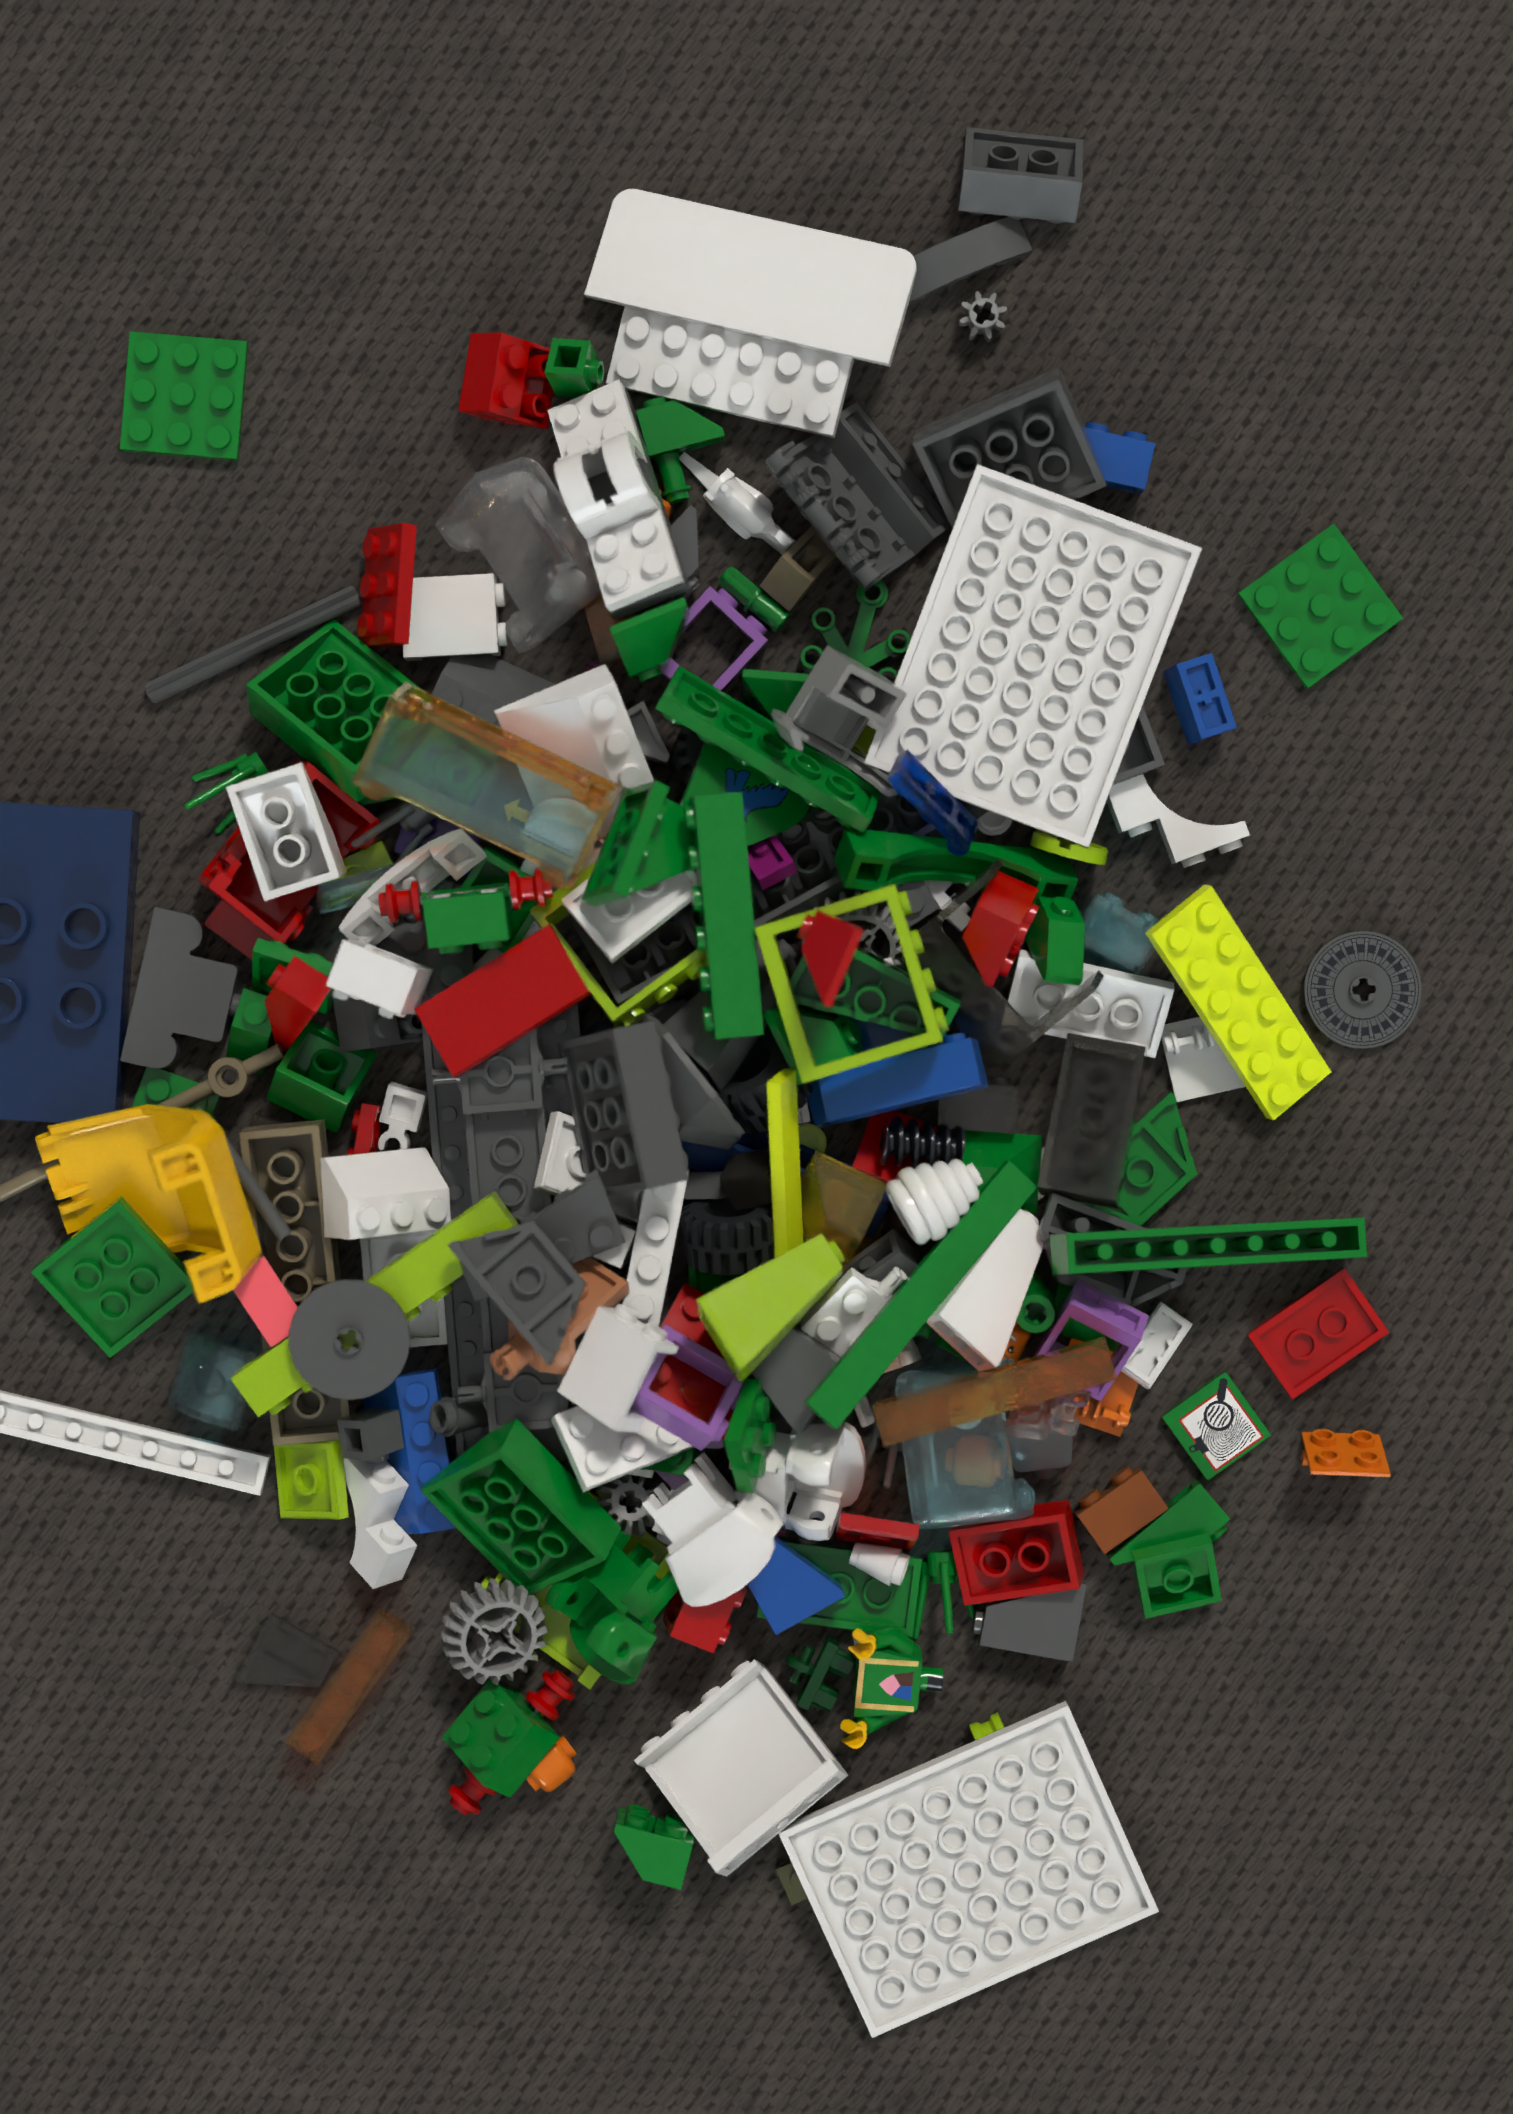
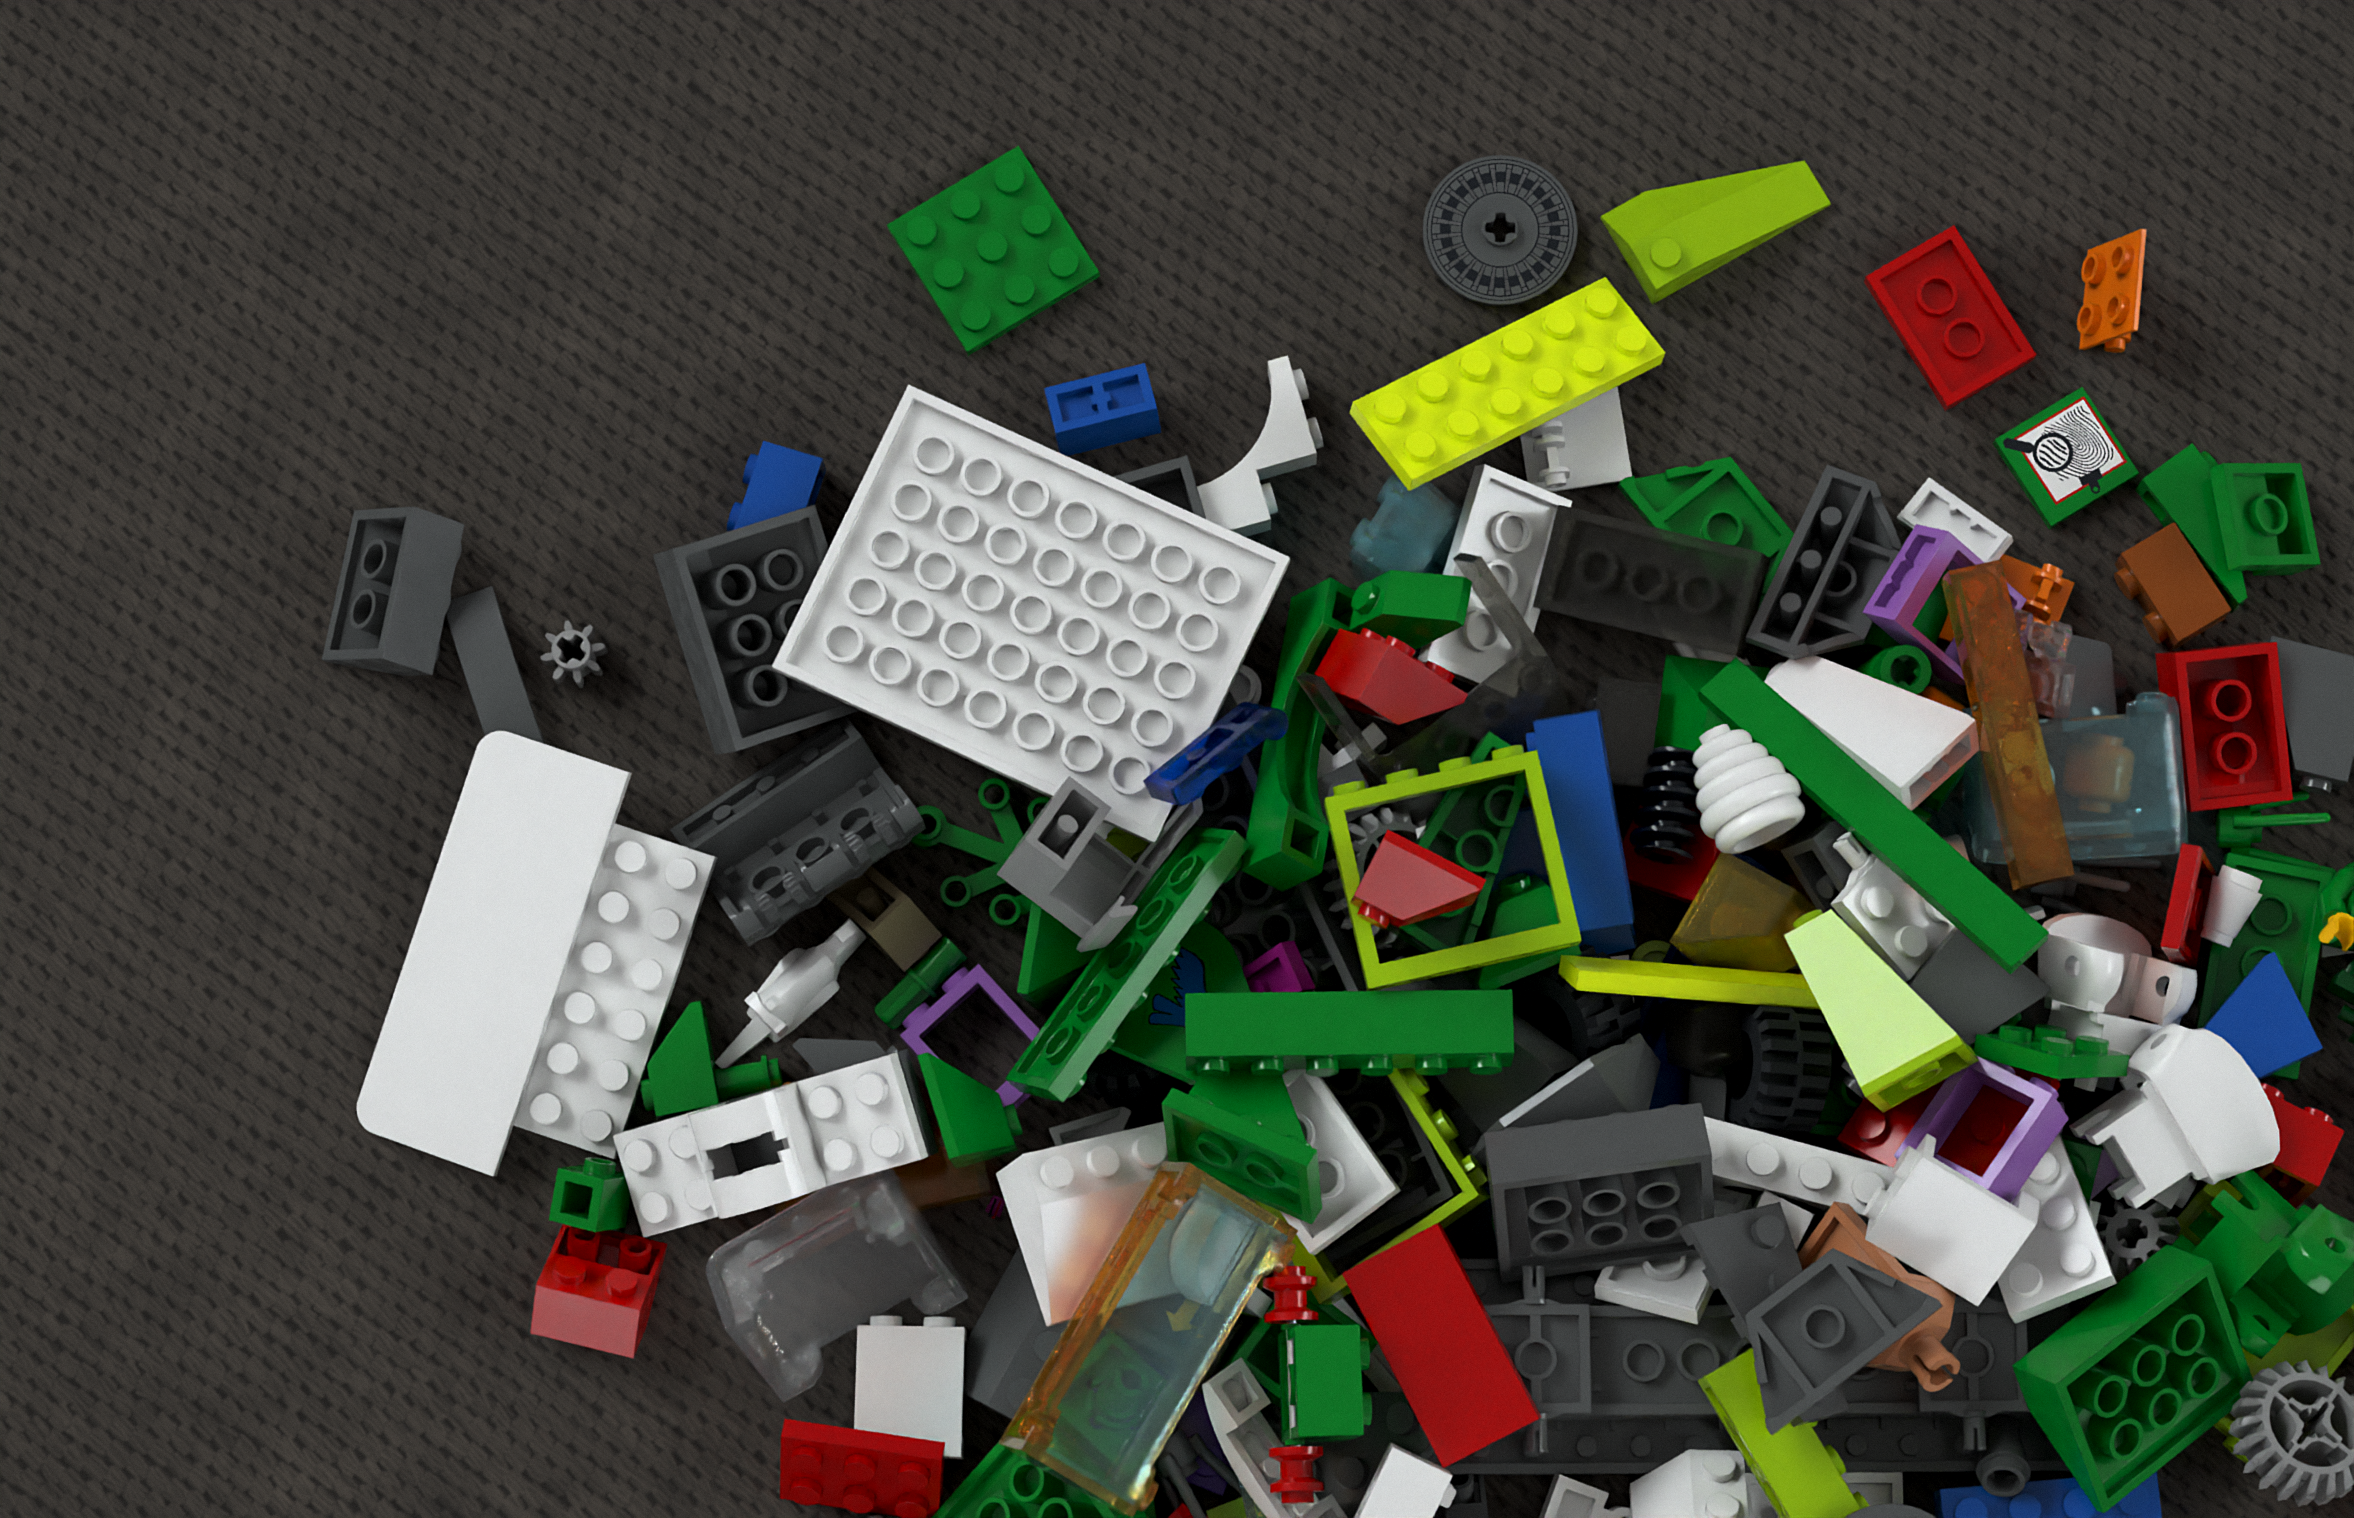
camera: 80 degrees left, 10 degrees down
(1093, 854) = (1288, 589): lime tile -> none
(1207, 1246) = (1828, 443): green brick -> none
(1377, 1140) = (1698, 226): none -> lime wedge

